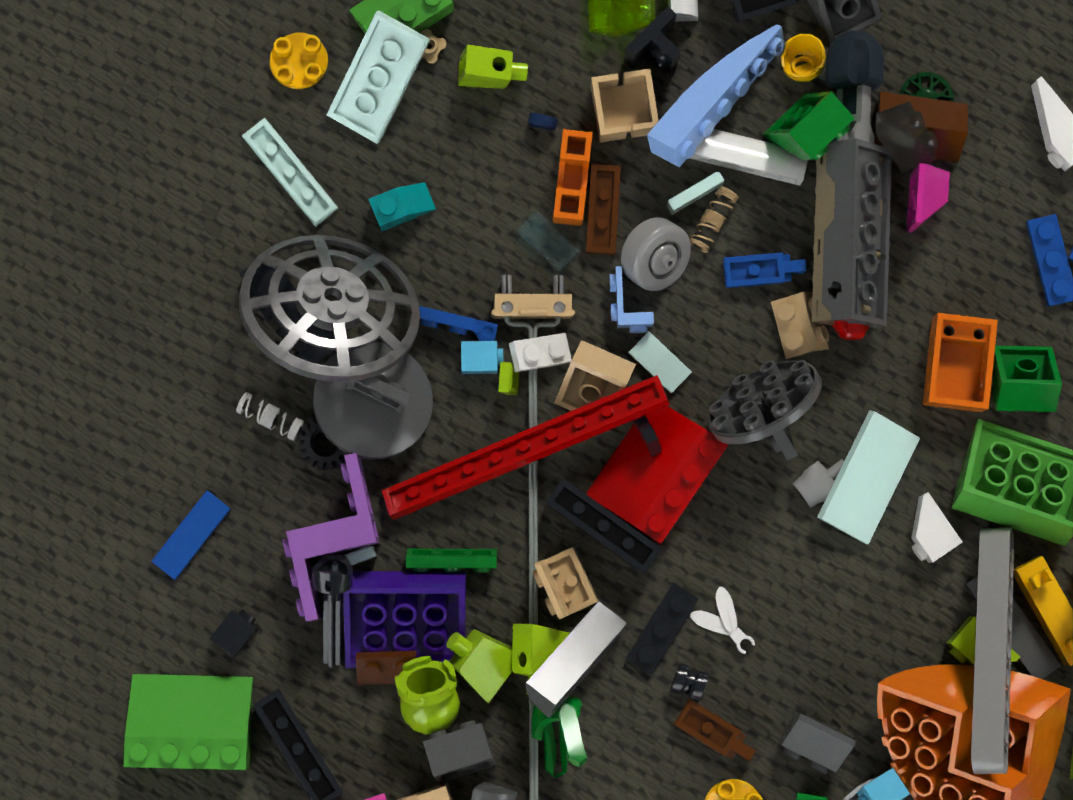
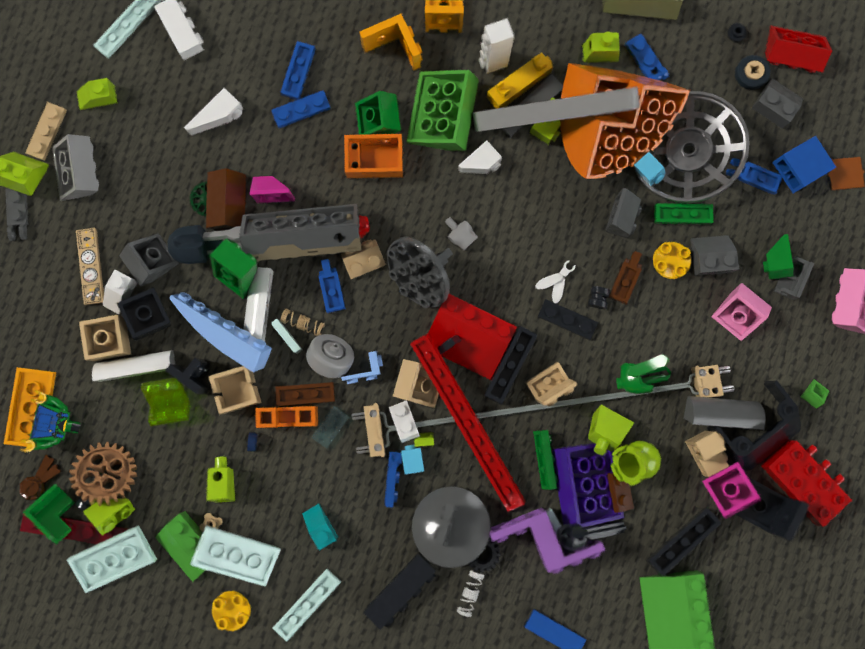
camera: 95 degrees left, 0 degrees up
(235, 632) = (614, 594): black brick -> none
(327, 314) = (402, 567): flat silver dish -> none
(459, 752) = (669, 437): dark grey slope -> none
(533, 646) = (599, 393): lime torso -> none
(574, 658) = (598, 371): brick -> none
(659, 361) = (399, 344): light aqua tile -> none
(812, 52) = (186, 273): yellow hair -> none
(868, 477) = (453, 203): light aqua tile -> none
(906, 136) = (233, 206): clear smoke brick -> none

